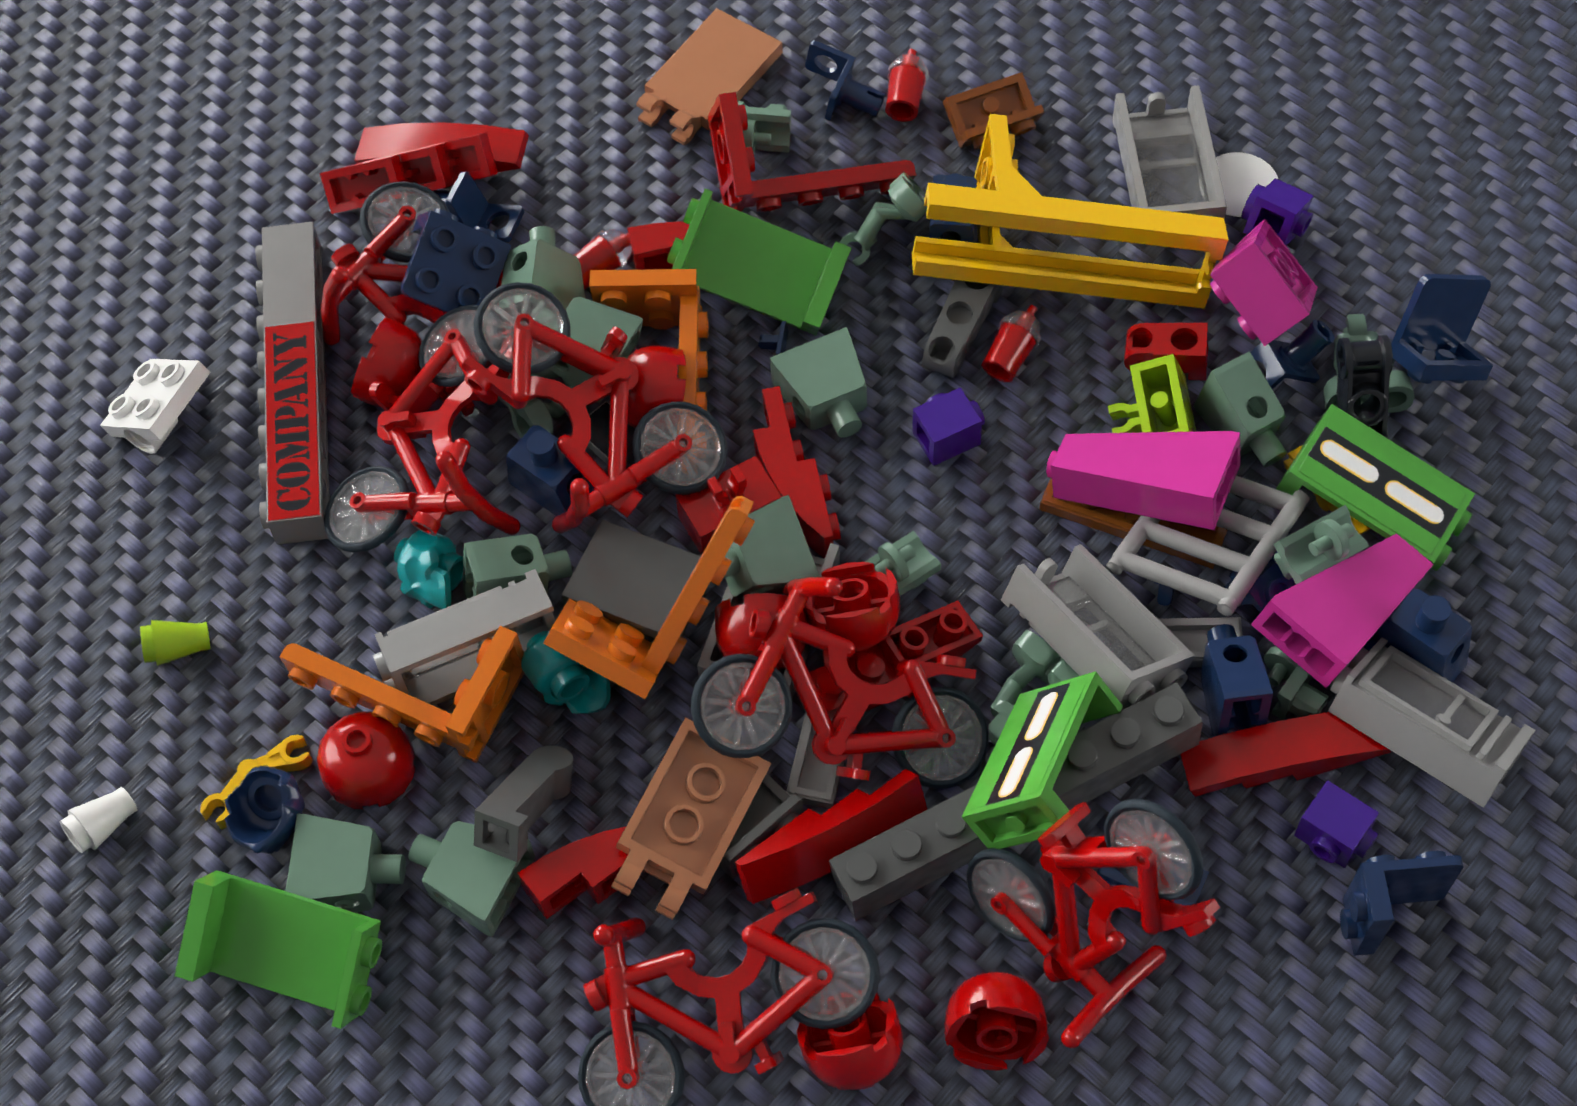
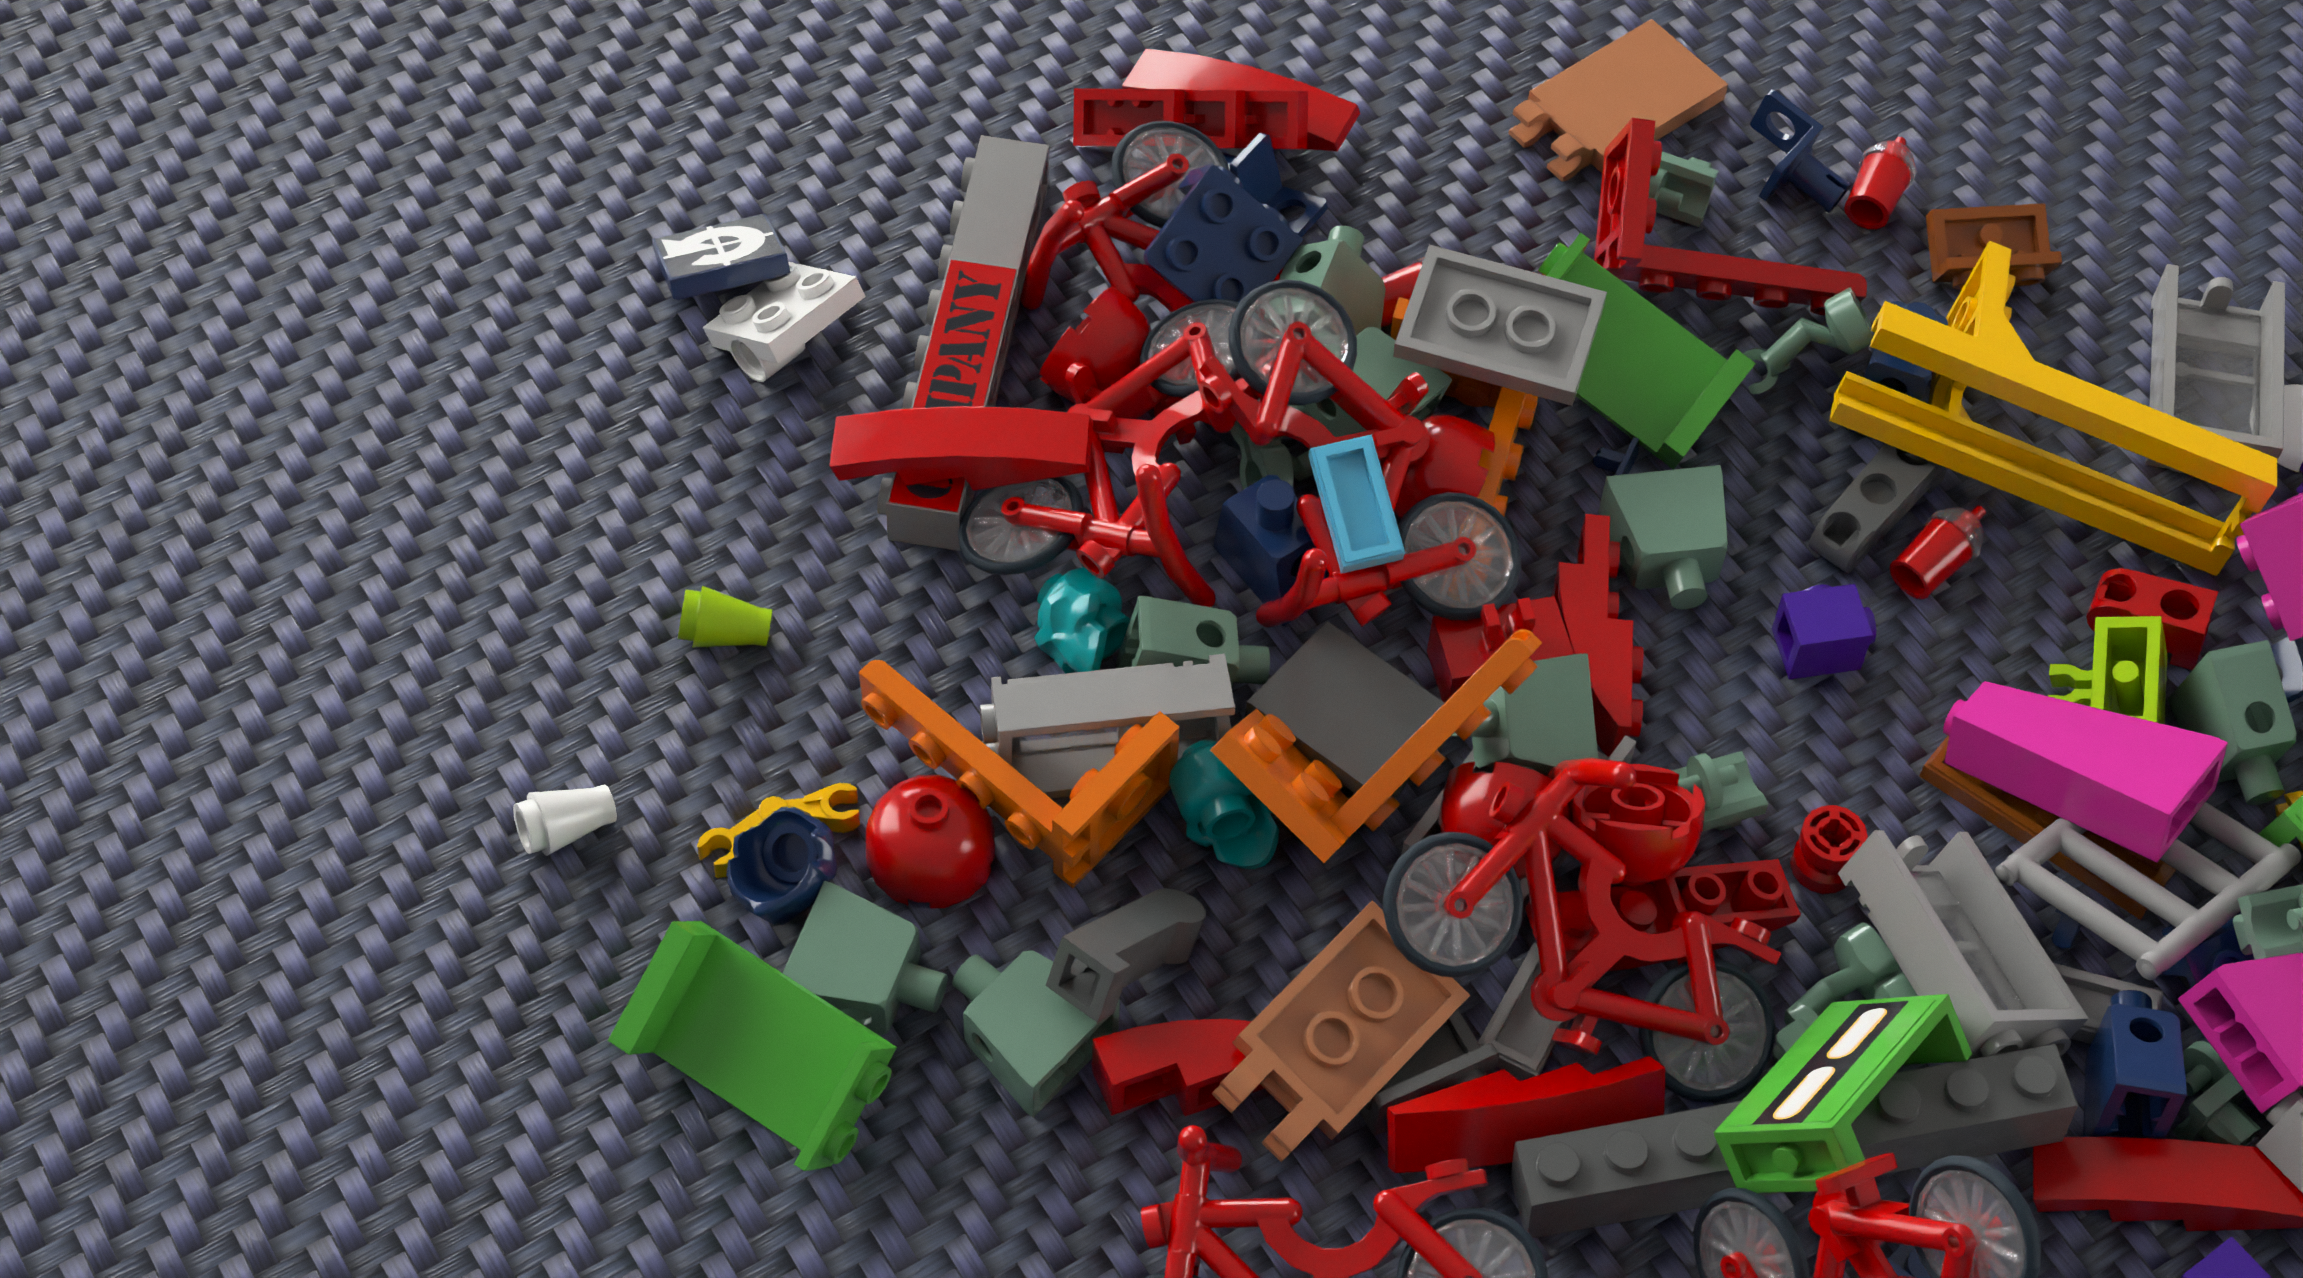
camera: 10 degrees right, 5 degrees down
(98, 370) = (720, 256): none -> tile
(312, 462) = (970, 442): none -> red slope
(598, 433) = (1356, 504): none -> medium azure tile
(665, 272) = (1500, 324): none -> light grey plate
(984, 590) = (1824, 846): none -> red wheel

